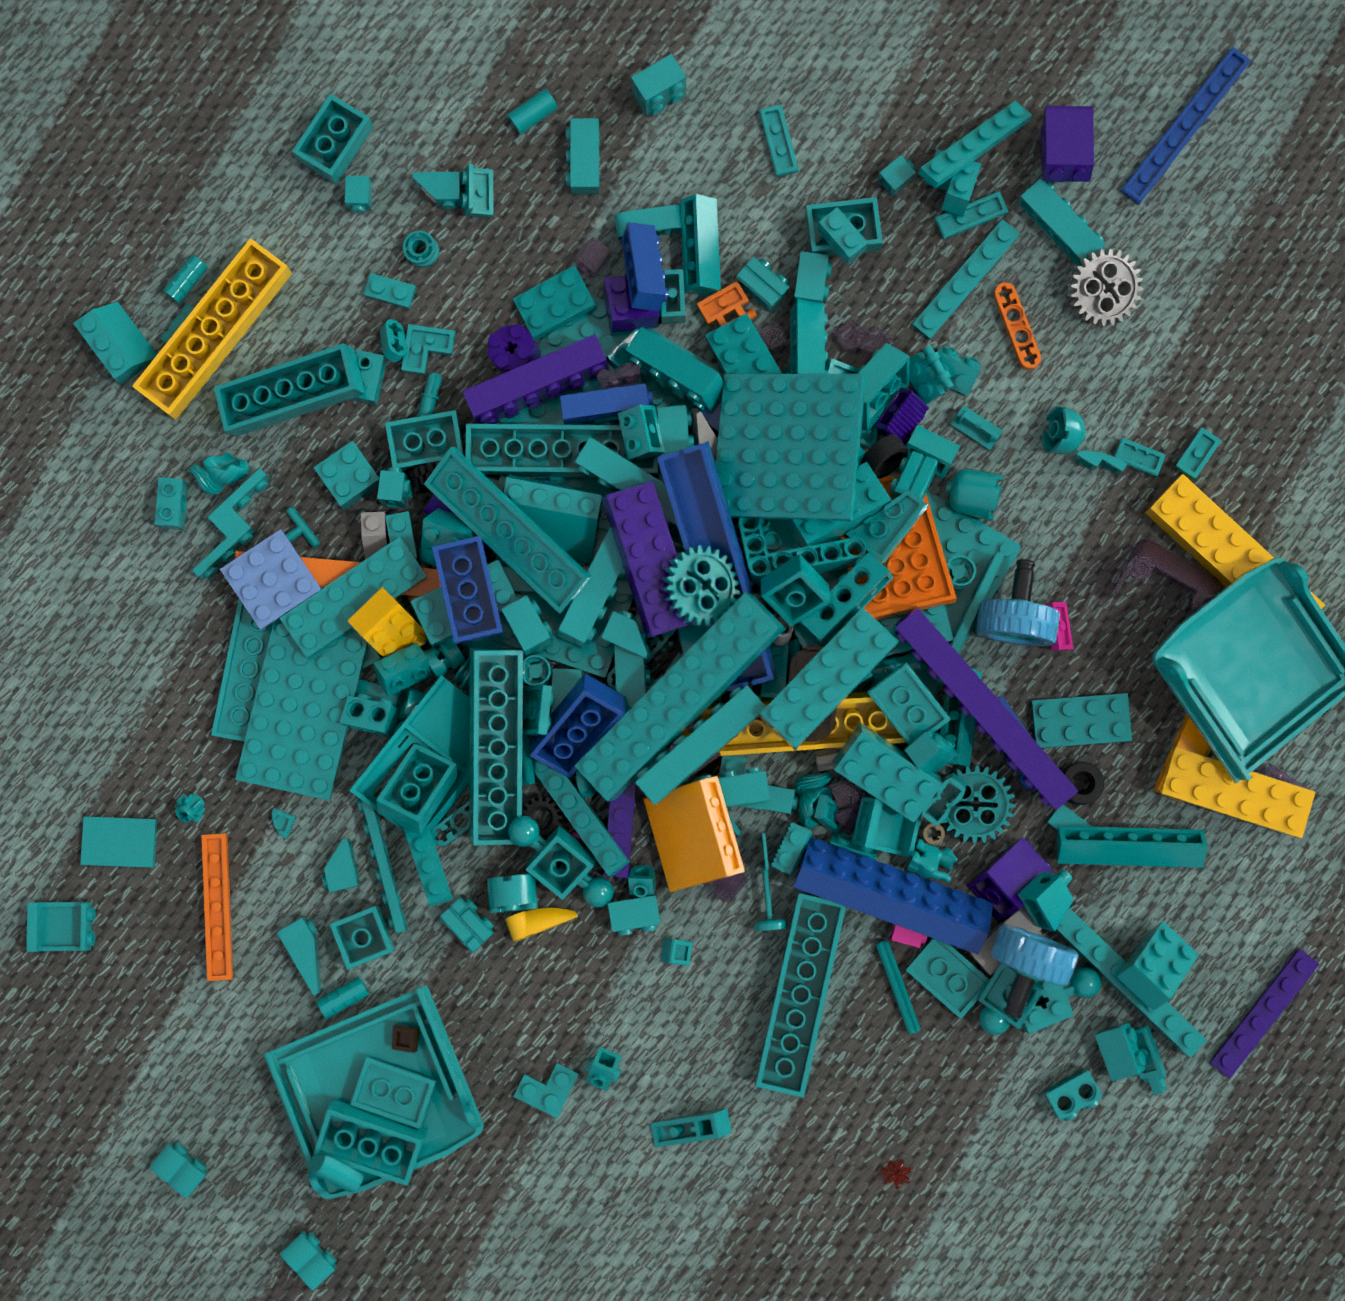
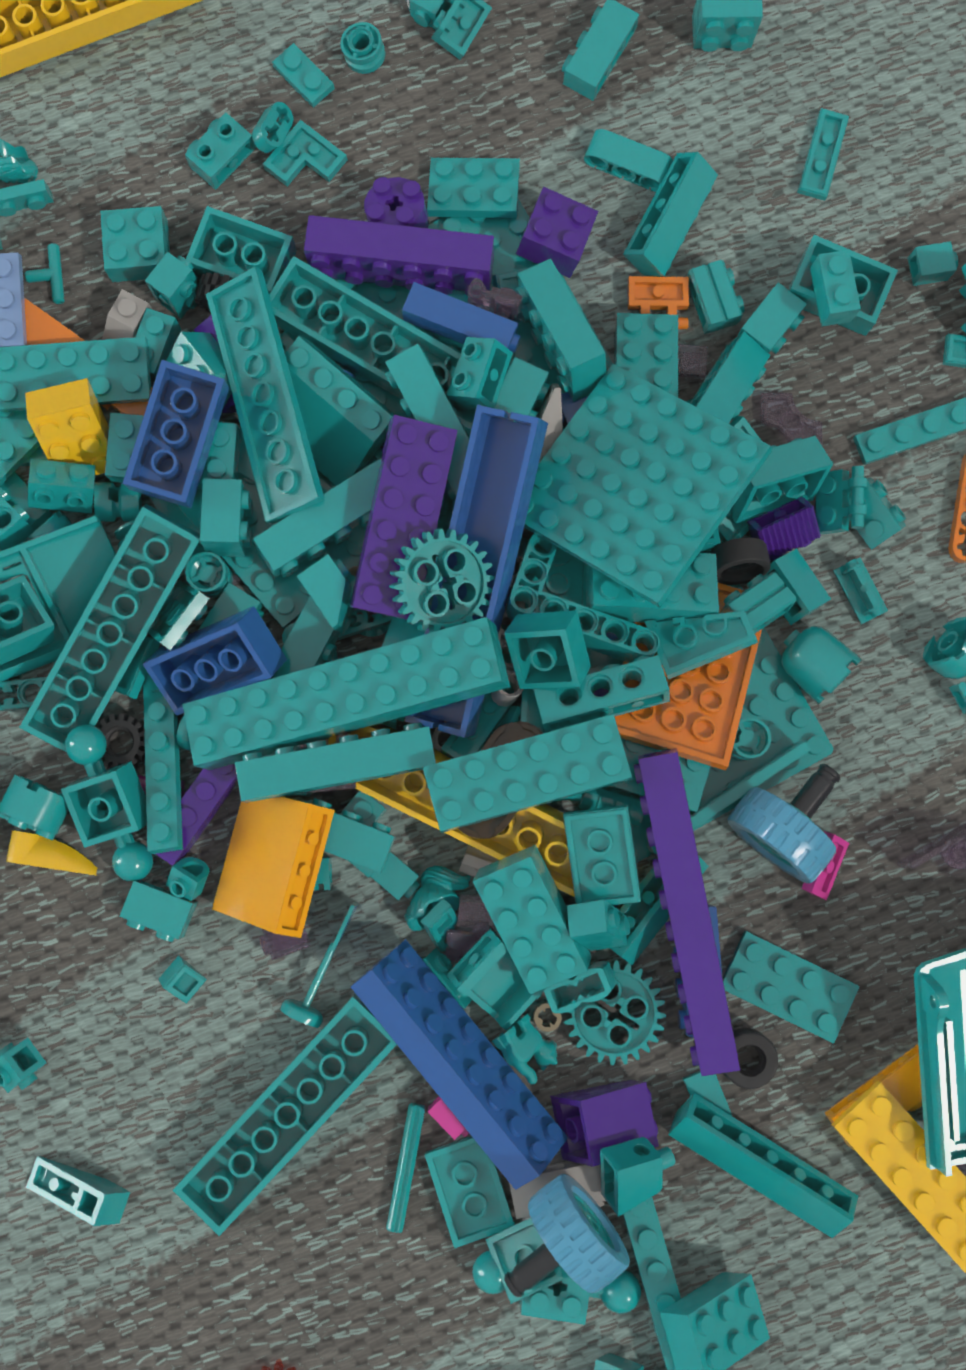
camera: 20 degrees right, 0 degrees up
(289, 390) = (124, 111): teal brick -> none
(430, 394) = (280, 208): teal axle -> none
(592, 258) = (544, 162): clear purple brick -> none
(644, 267) = (593, 197): blue brick -> none
(674, 308) = (606, 251): teal brick -> none
(791, 849) = (376, 940): teal brick -> none

